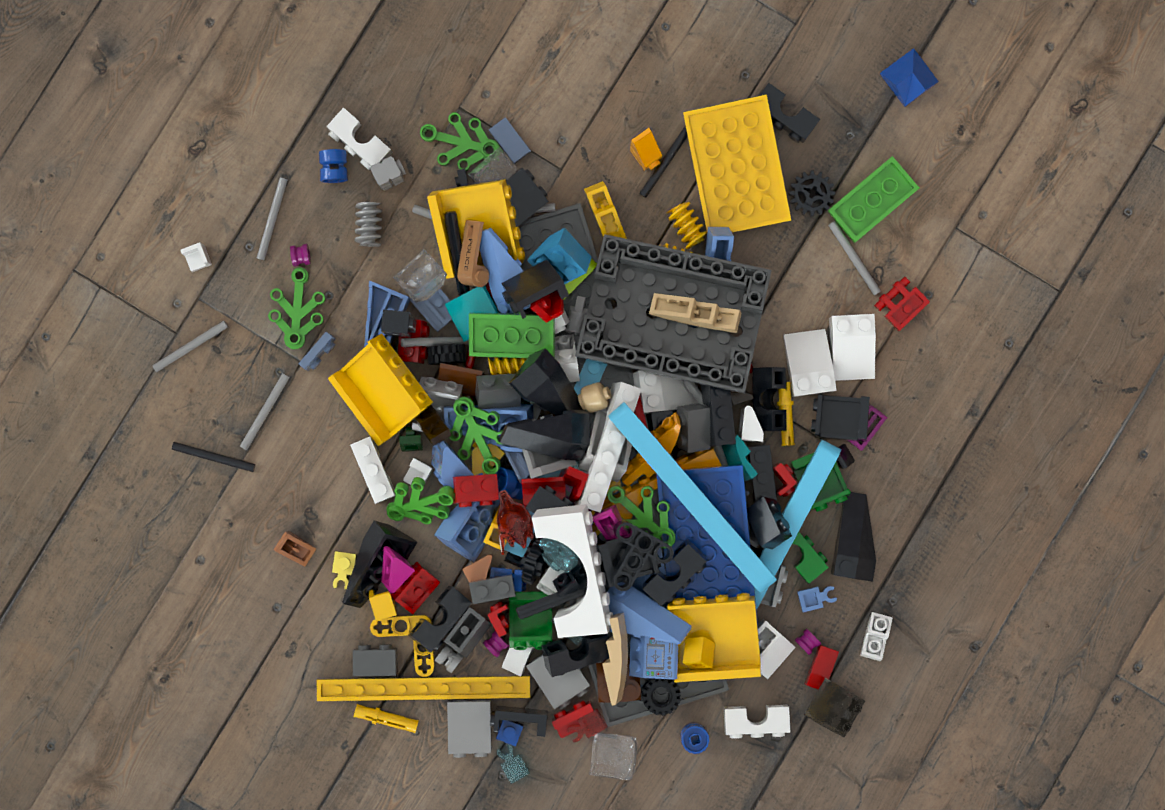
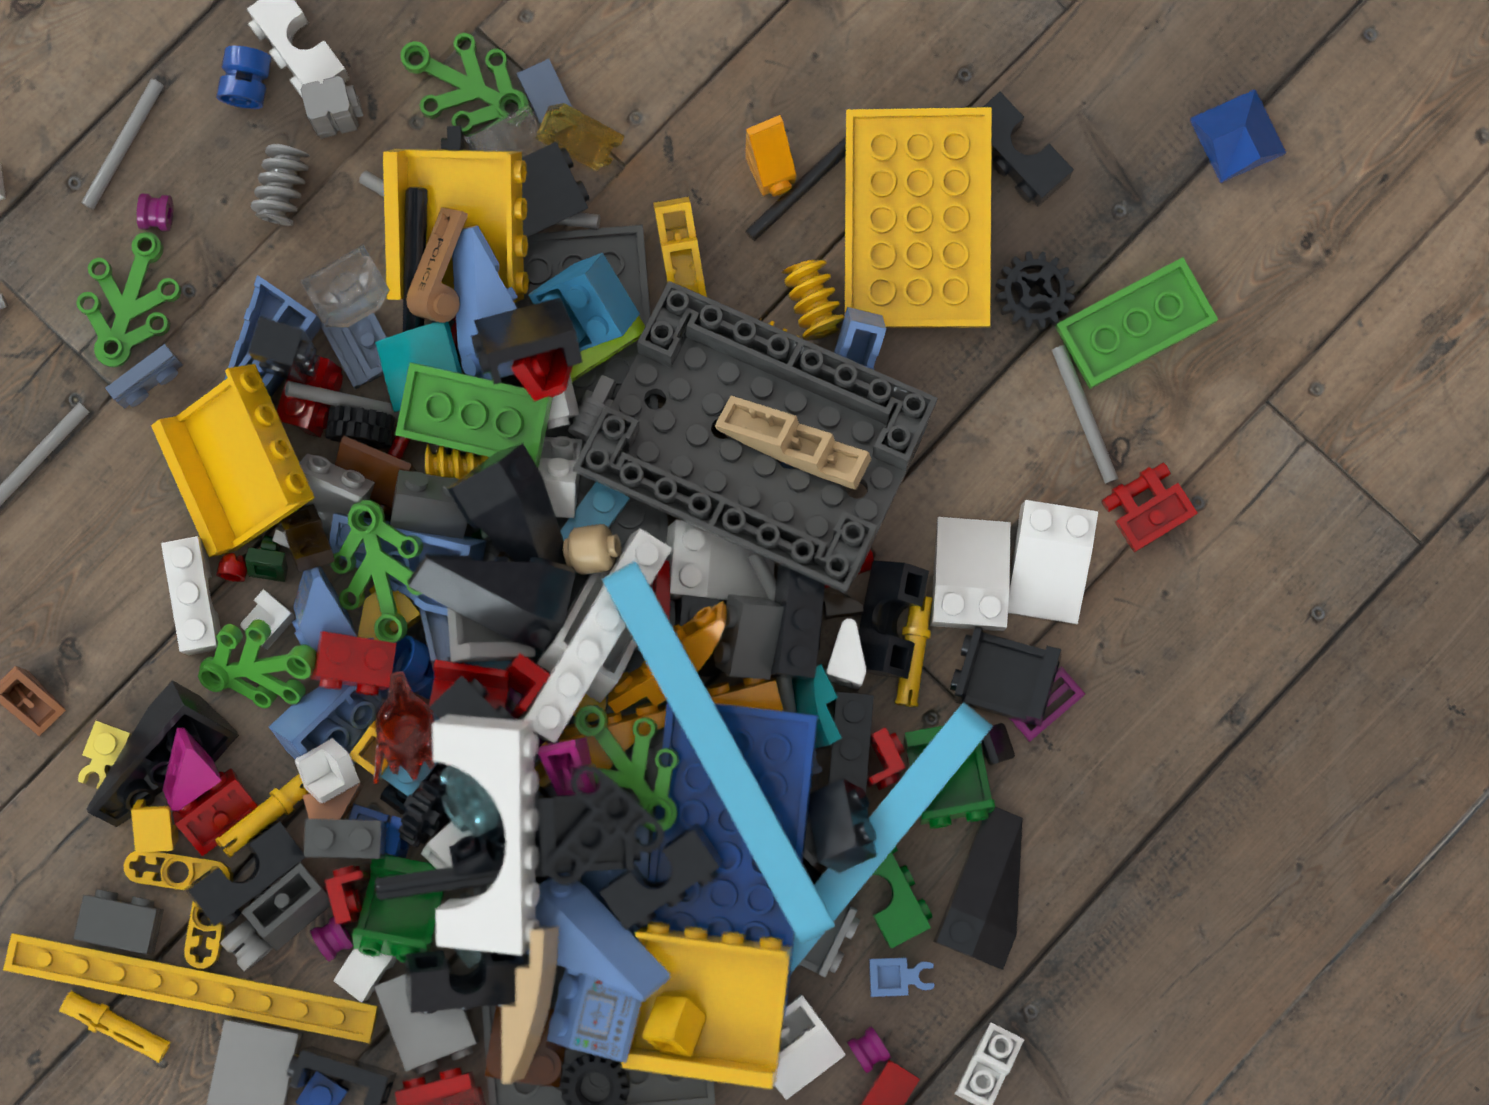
camera: 10 degrees right, 5 degrees down
(391, 448) = (232, 568): none -> red hinge
(448, 576) = (278, 803): none -> yellow pin
(473, 552) = (327, 771): none -> white panel
(533, 159) = (580, 135): none -> clear yellow hinge

